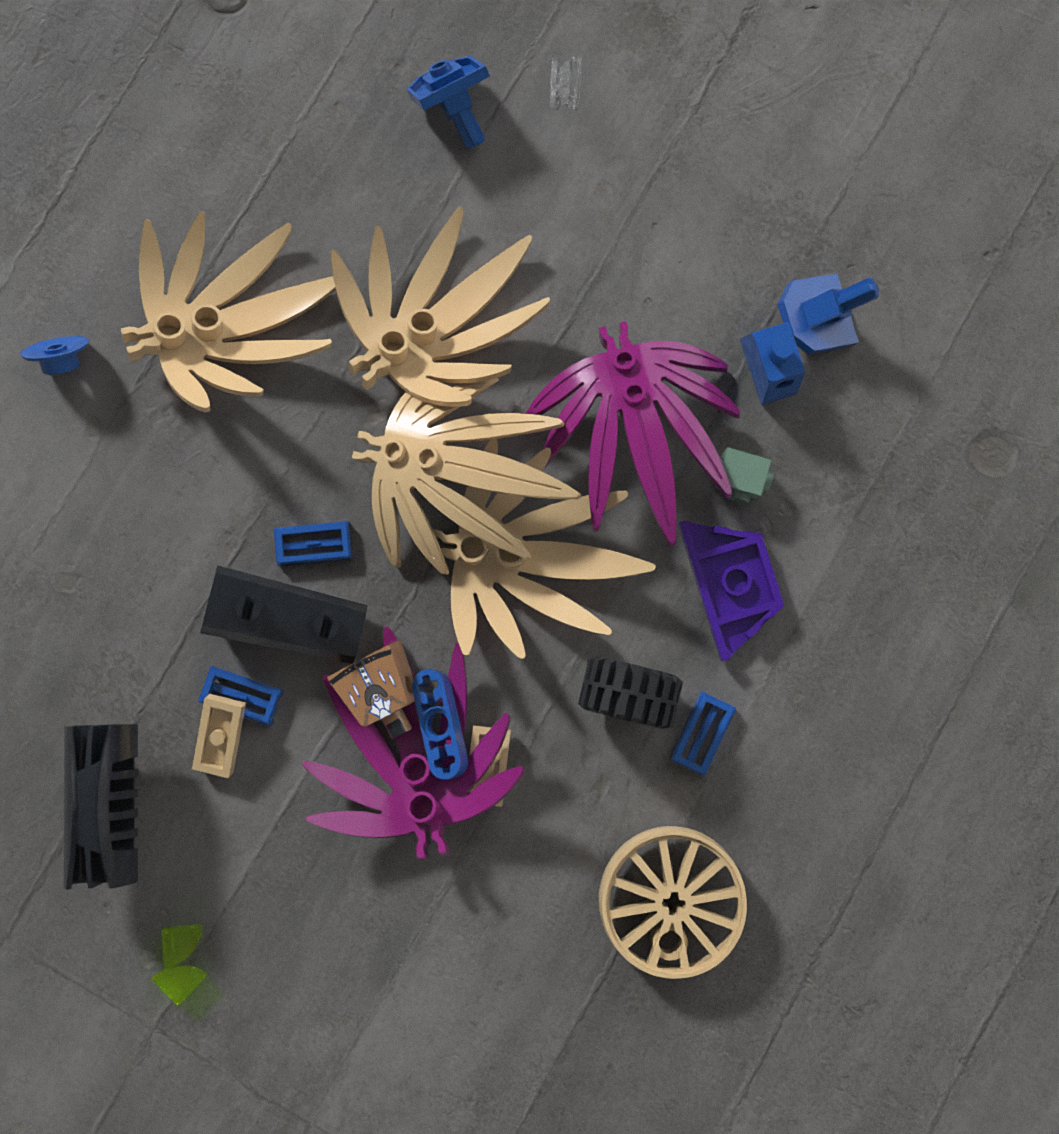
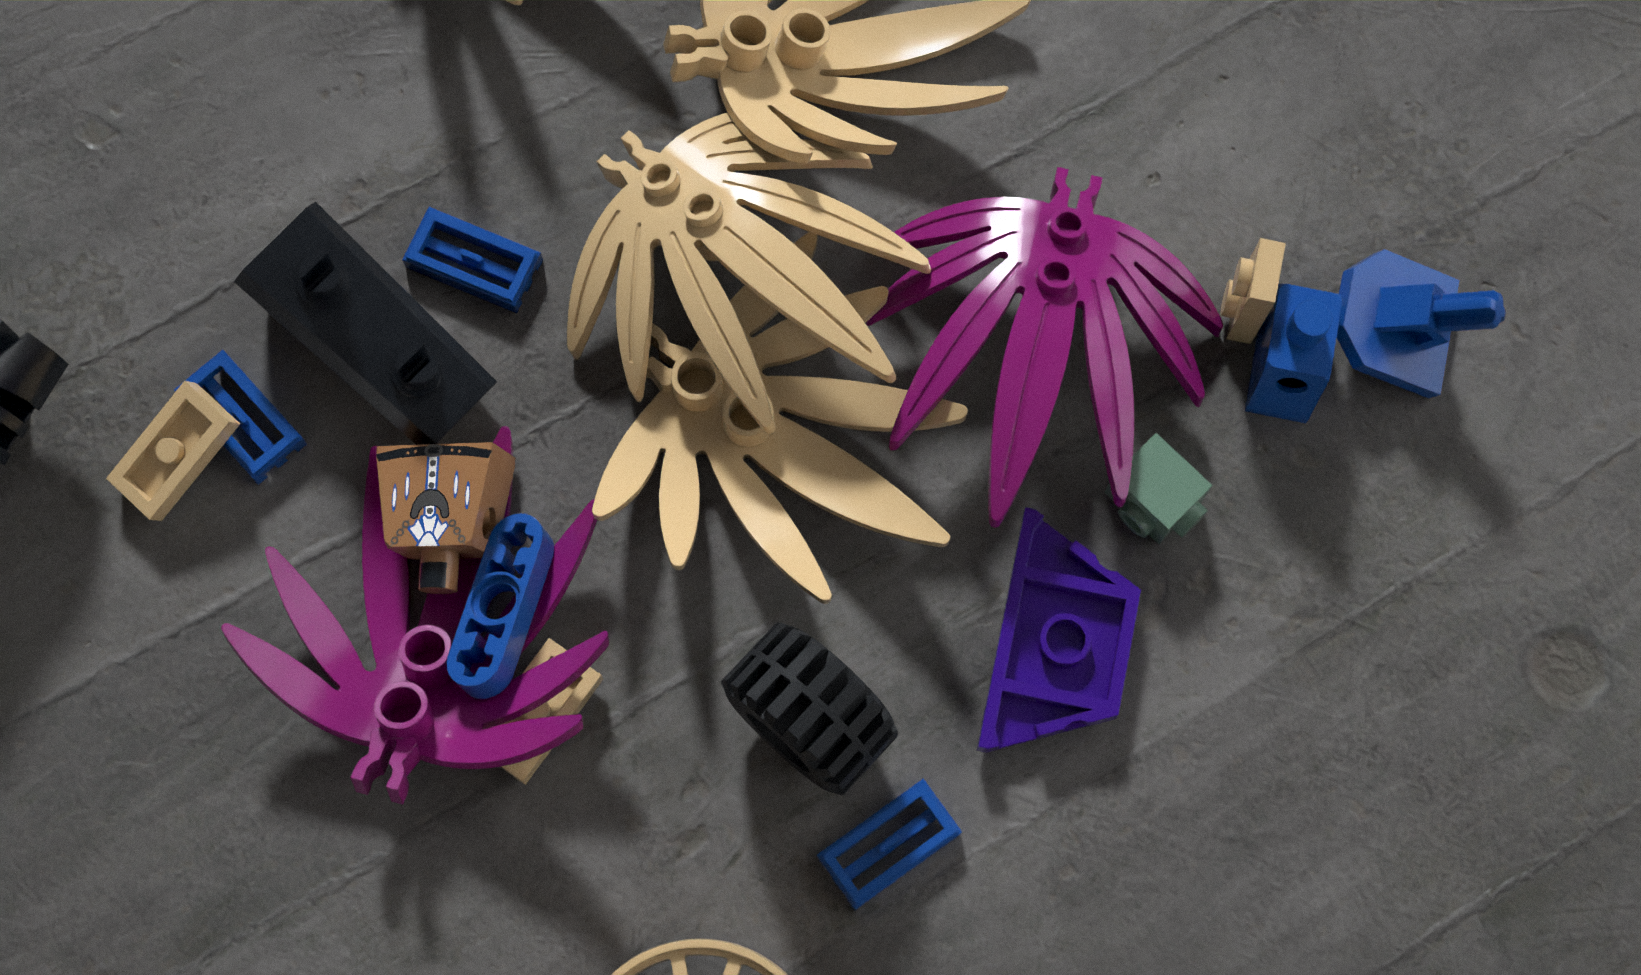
camera: 25 degrees right, 10 degrees down
(738, 341) = (1252, 290): none -> tan plate

